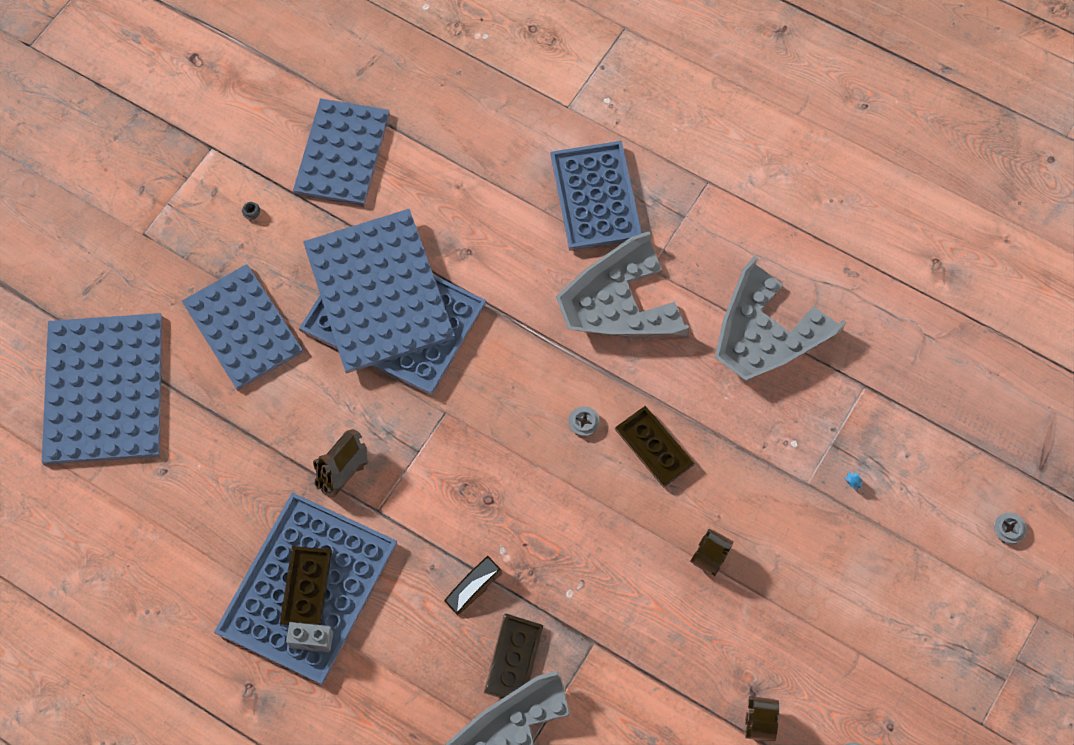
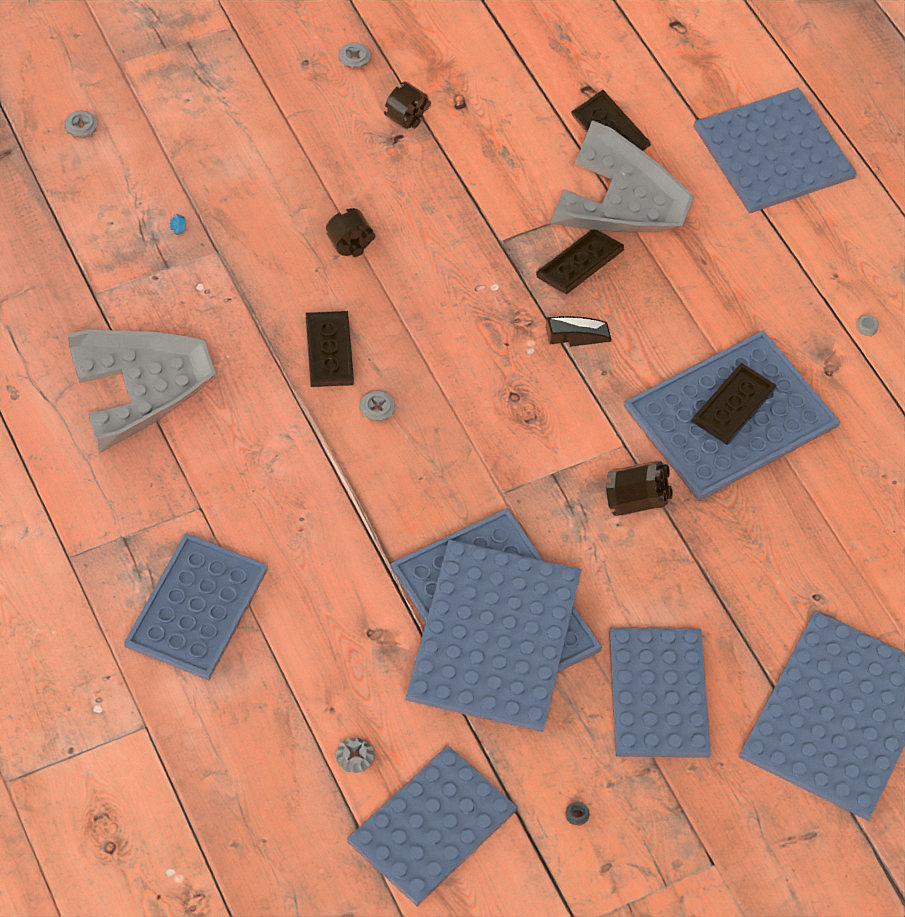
camera: 155 degrees left, 10 degrees down
(309, 637) = (755, 357): light grey brick -> none
(426, 169) = (355, 764): none -> light grey gear
(603, 303) = (276, 491): light grey piece -> none

